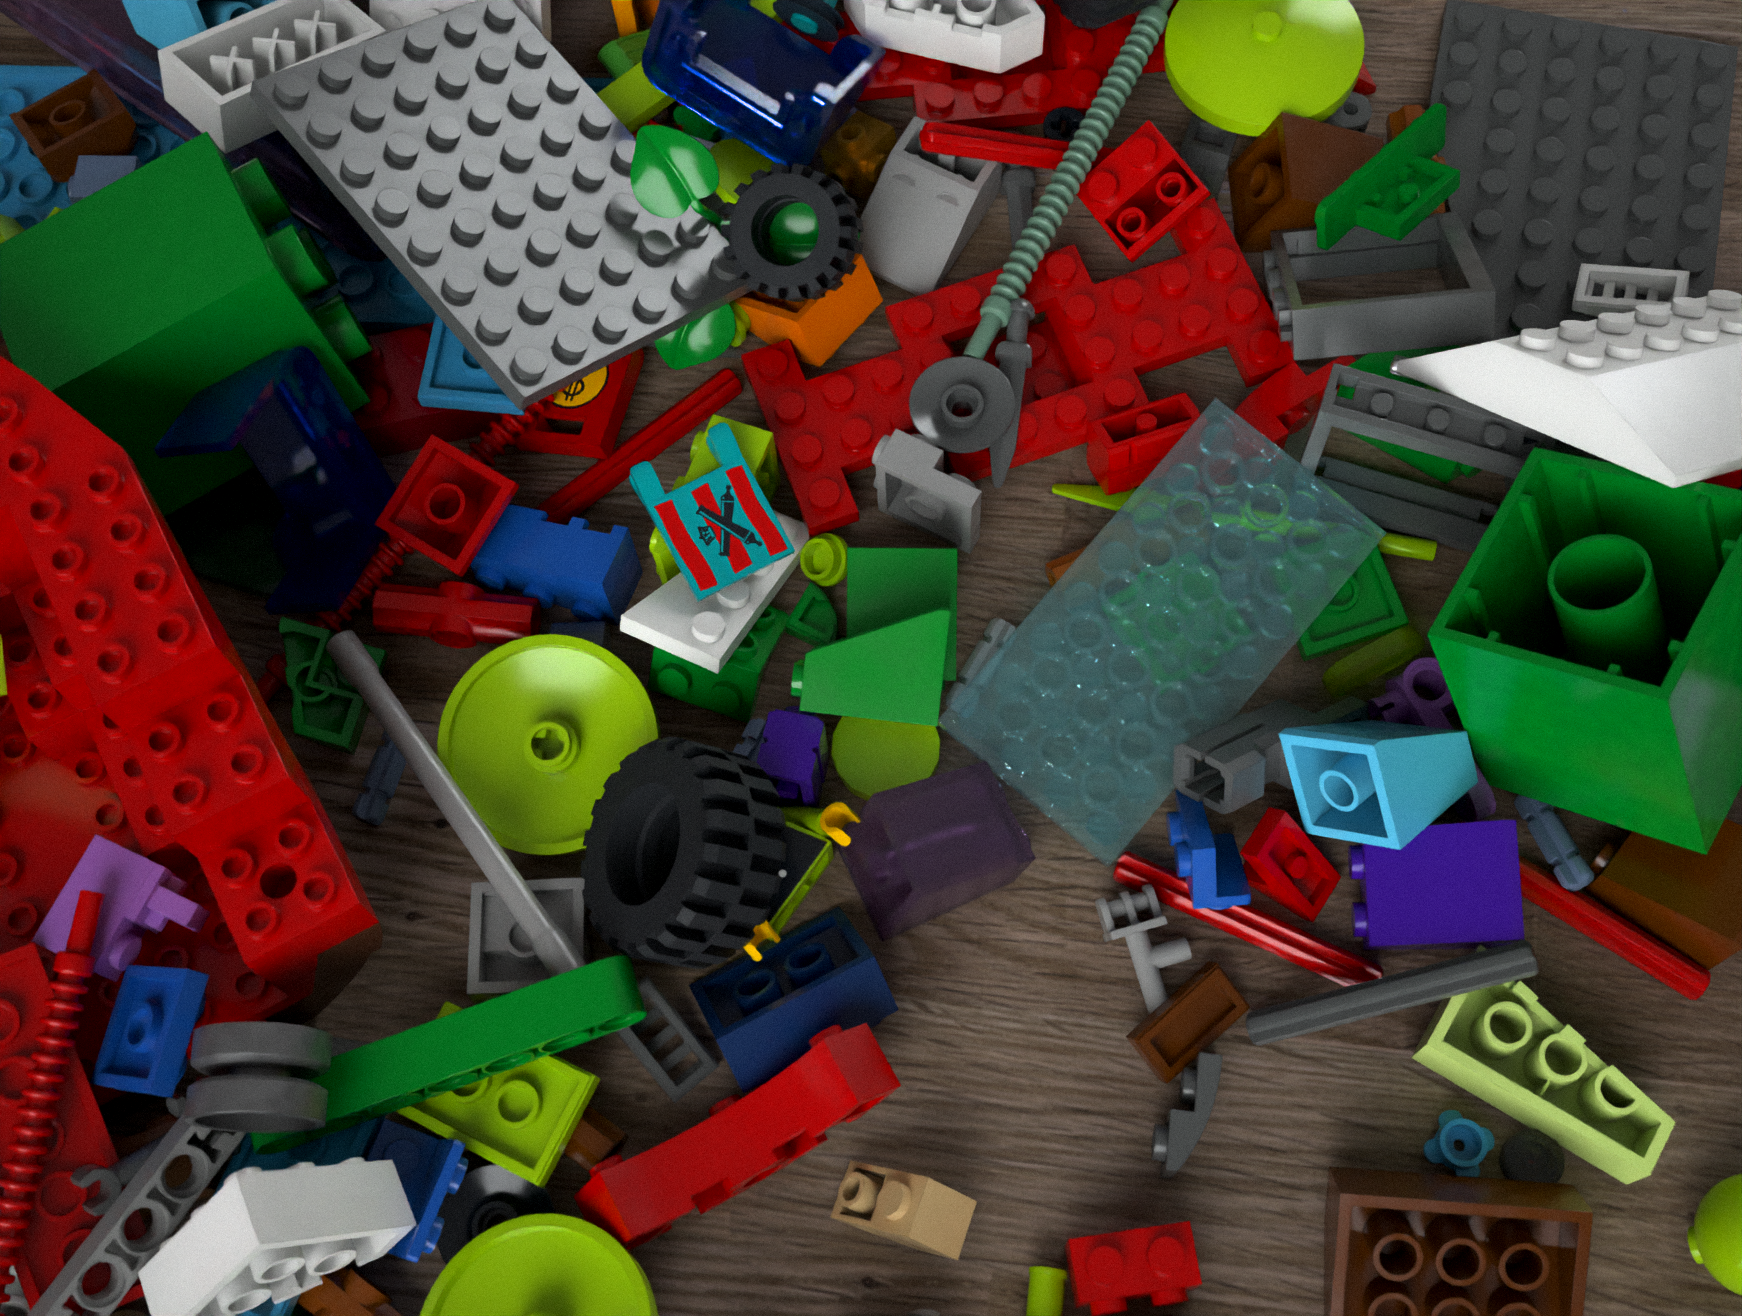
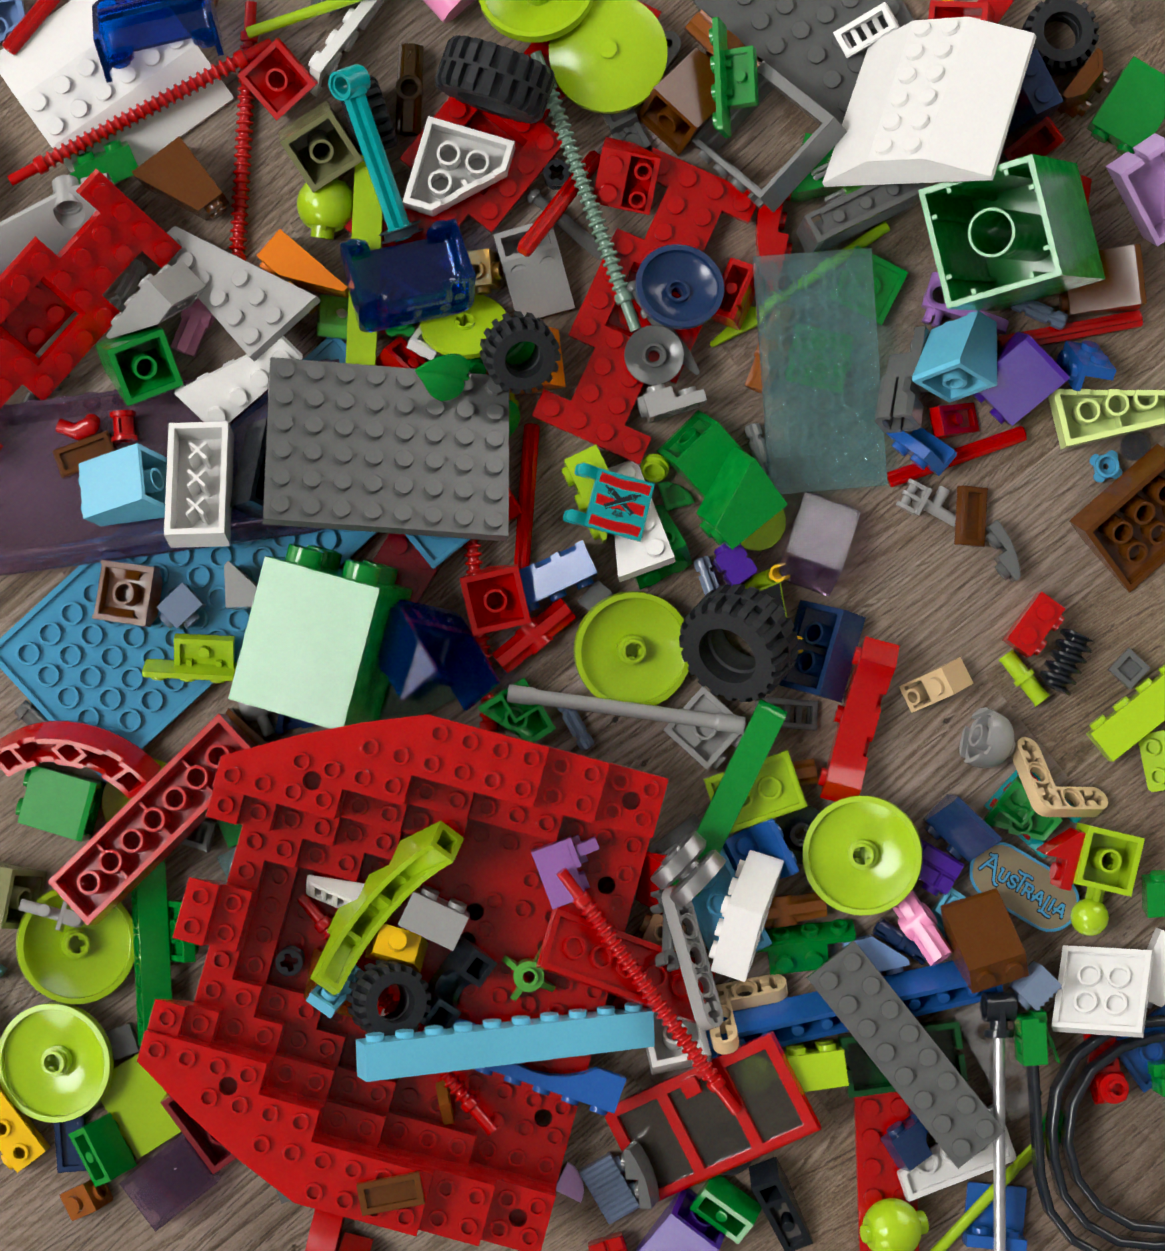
camera: 50 degrees left, 20 degrees up
(150, 1030) = (628, 894): blue plate -> none
(1078, 347) = (681, 271): none -> dark blue dish
(1372, 661) = (908, 301): clear neon green tile -> none
(1393, 993) = (1036, 438): dark grey axle -> none
(1571, 956) = (1084, 360): none -> blue bracket

